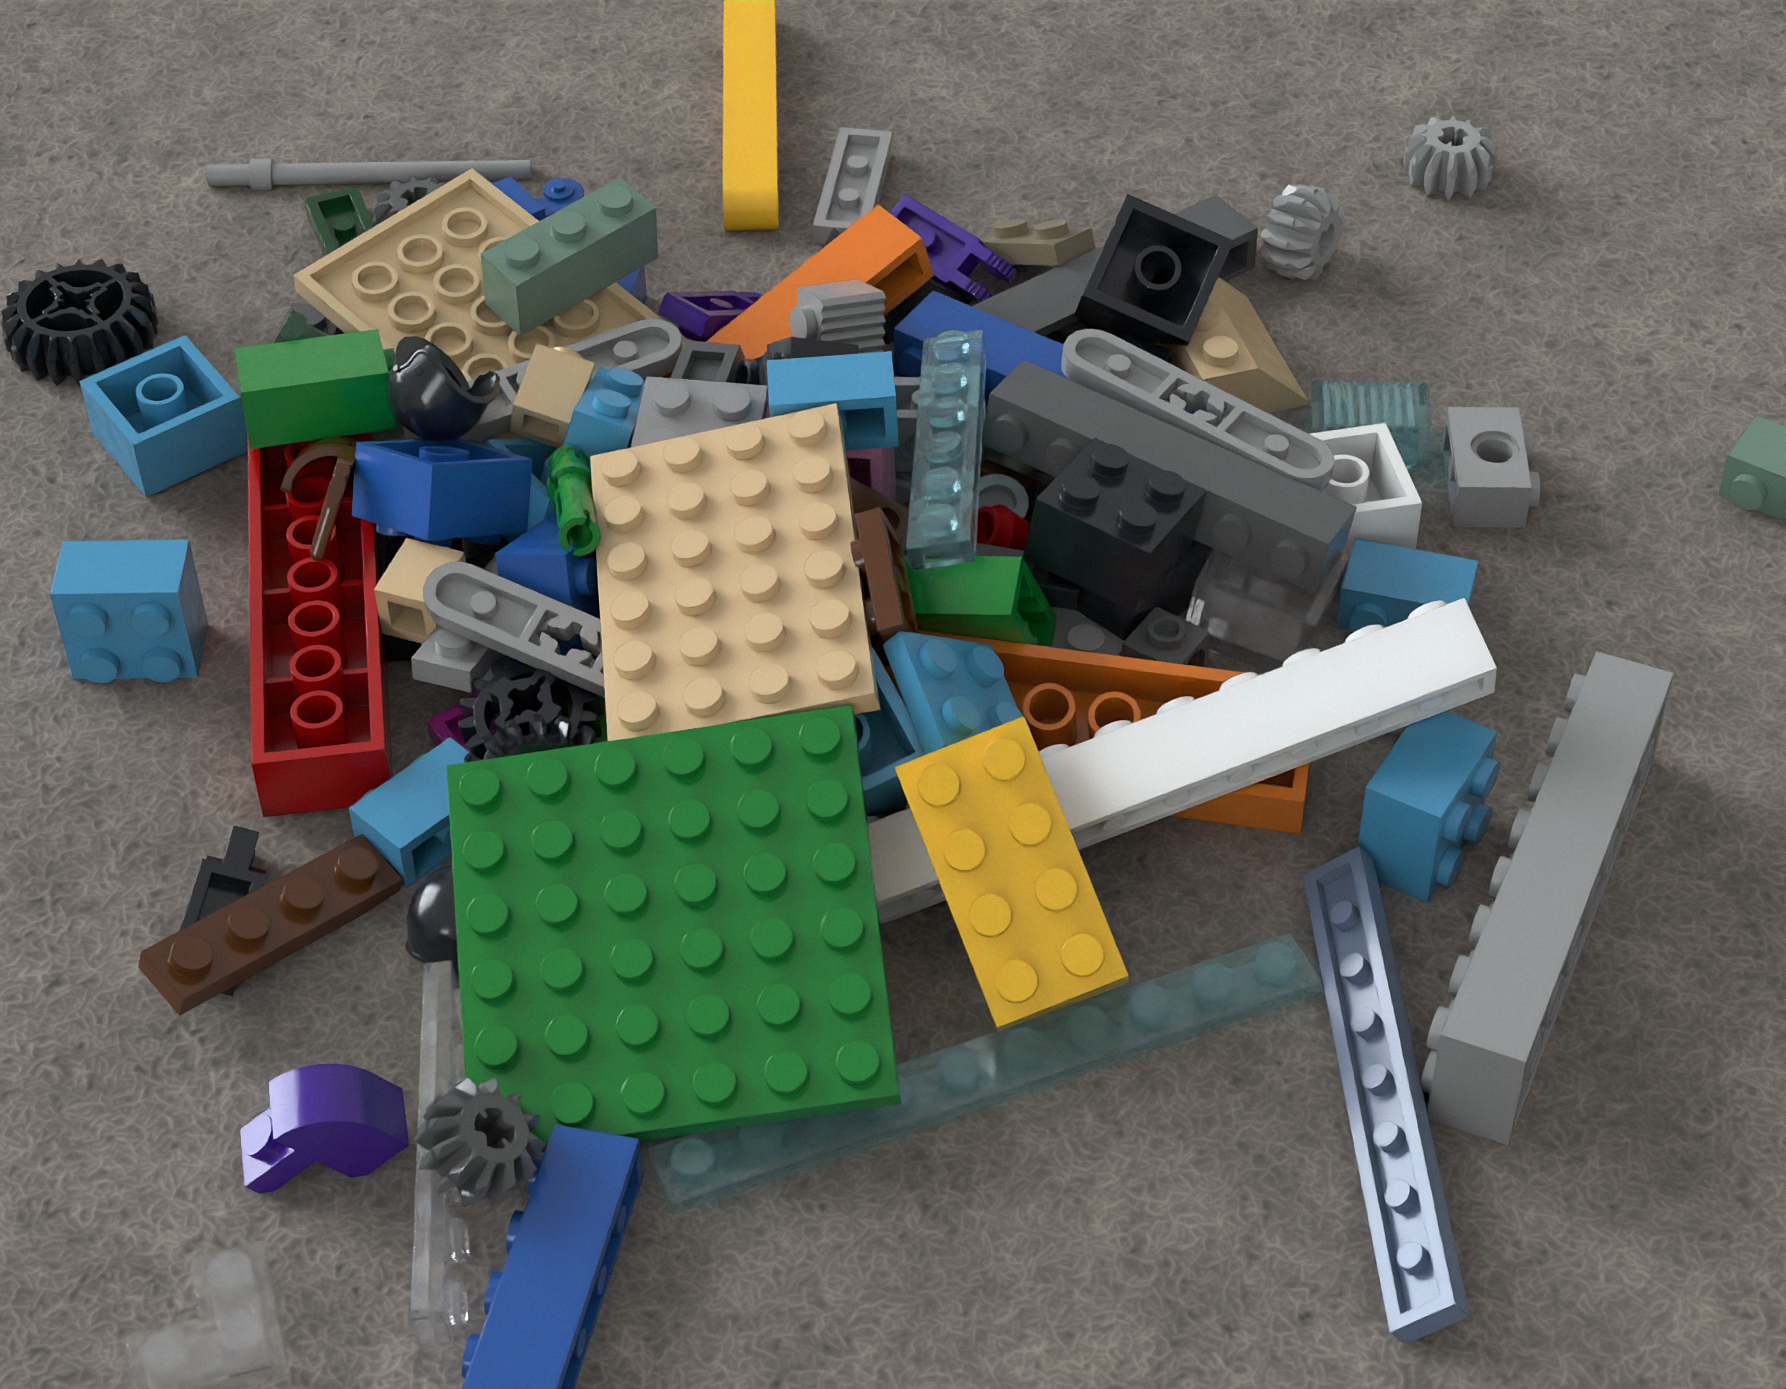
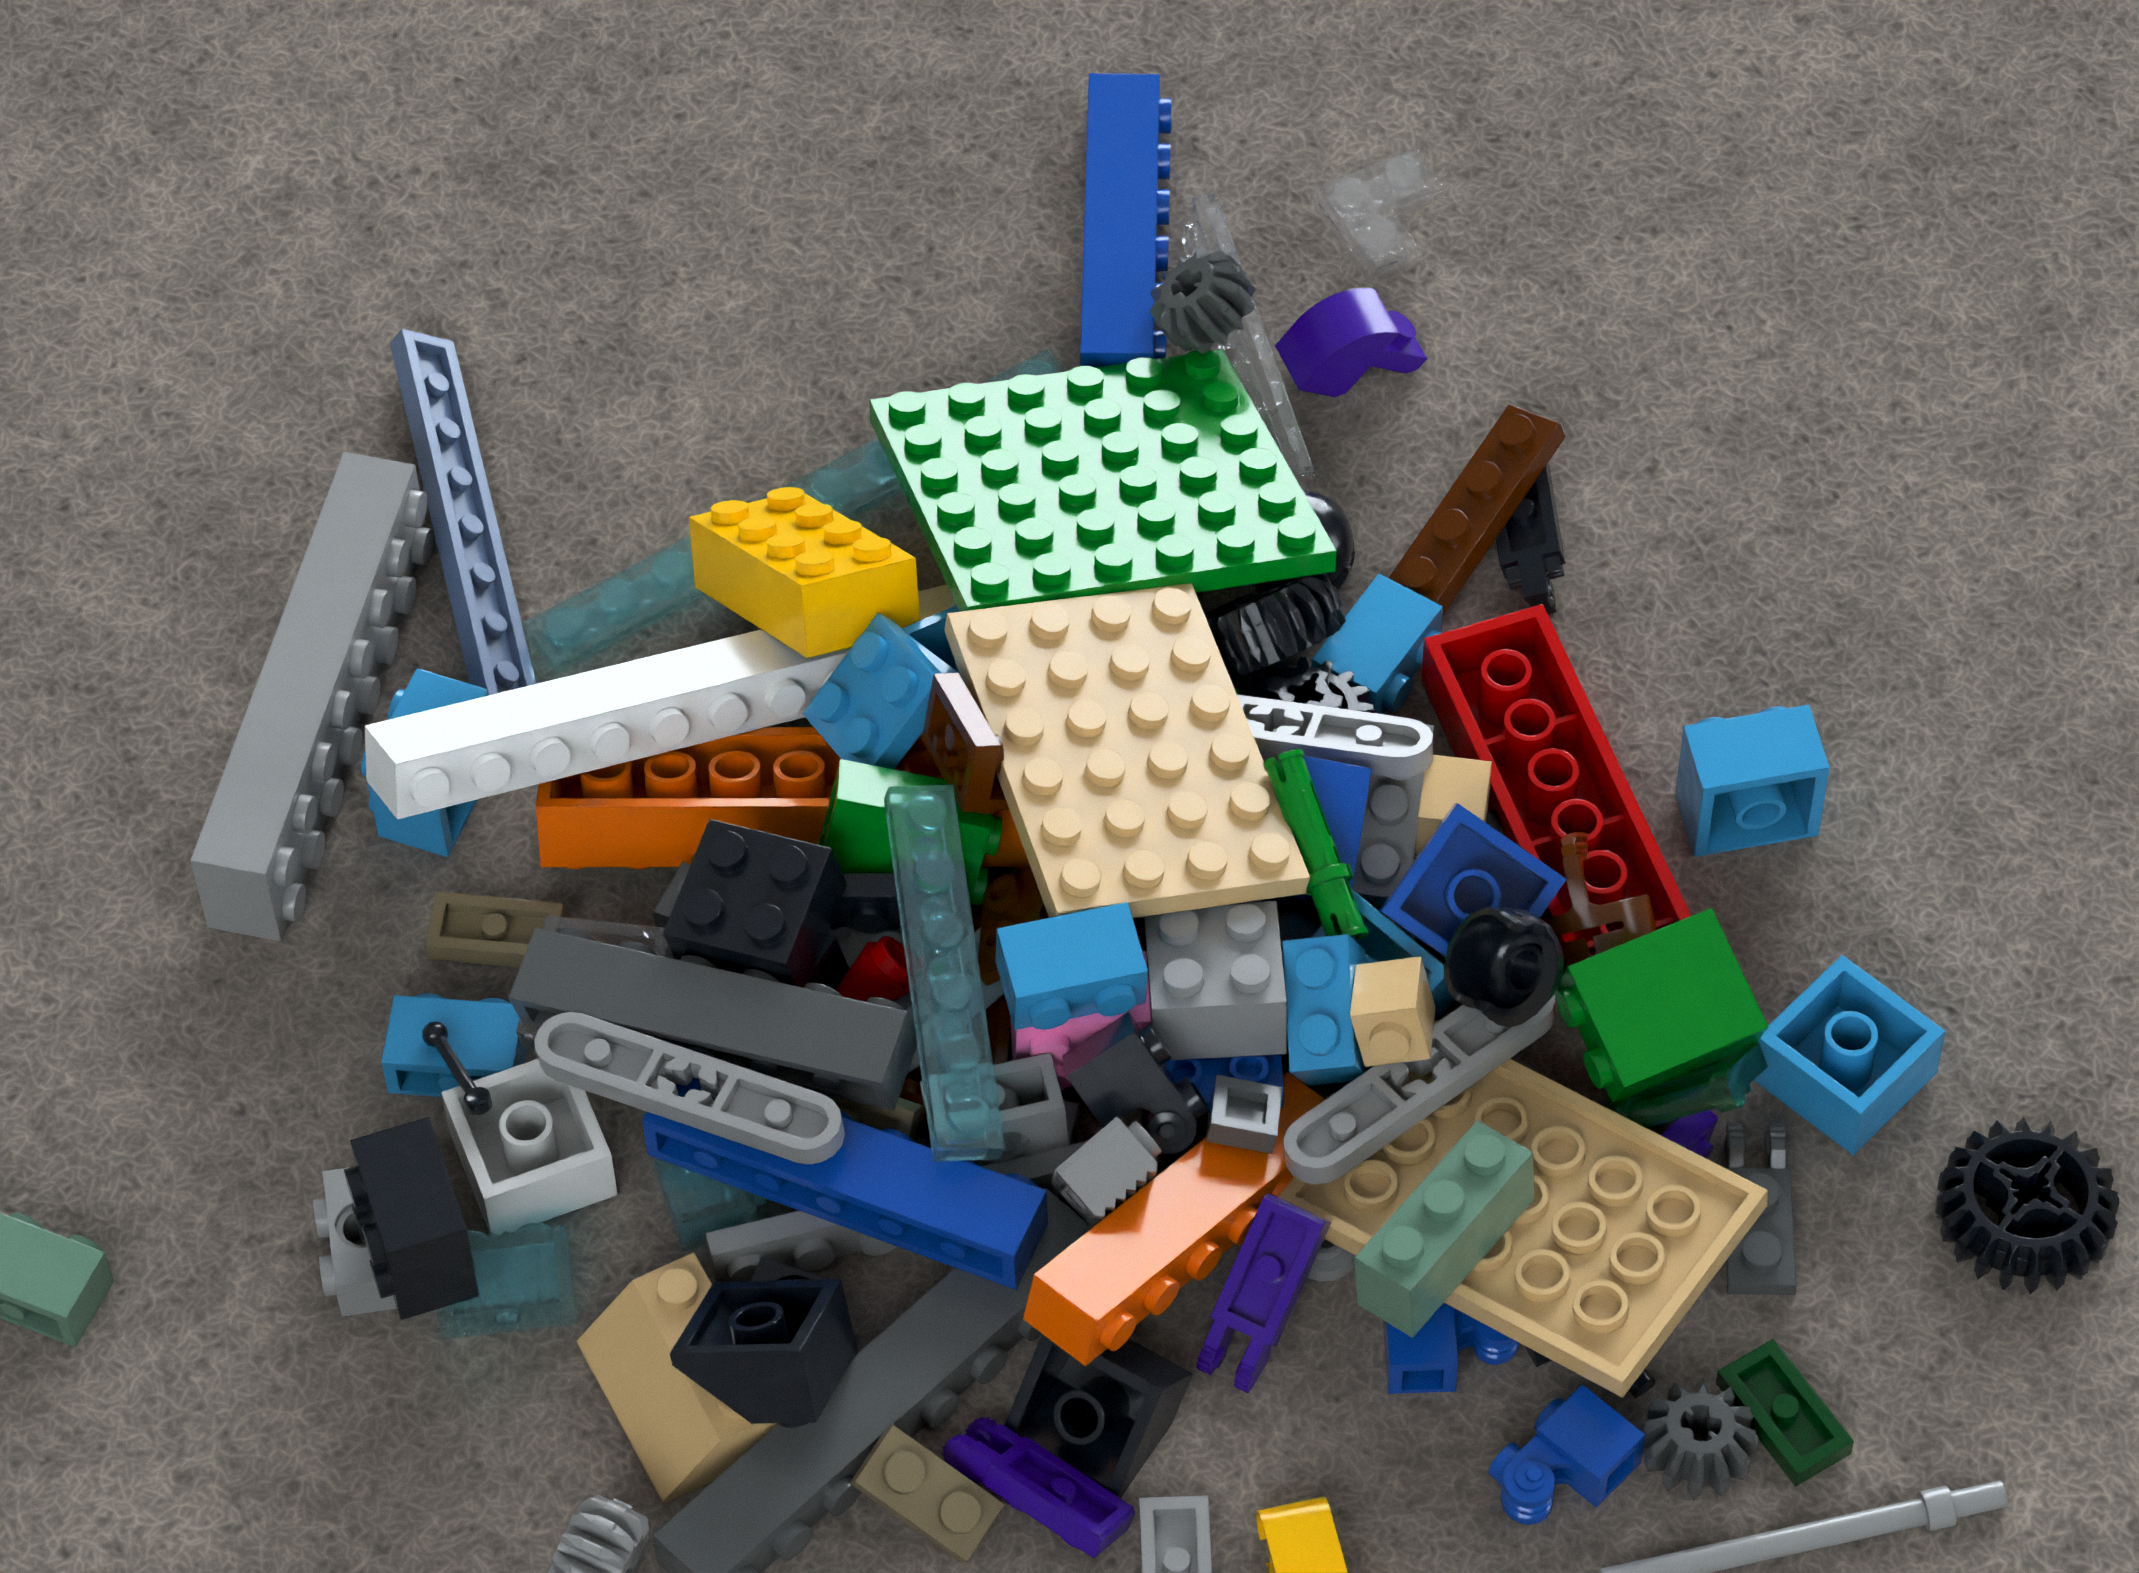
camera: 170 degrees right, 10 degrees up
(1388, 476) = (476, 1098): none -> black hinge
(1450, 374) = (410, 1219): none -> black brick

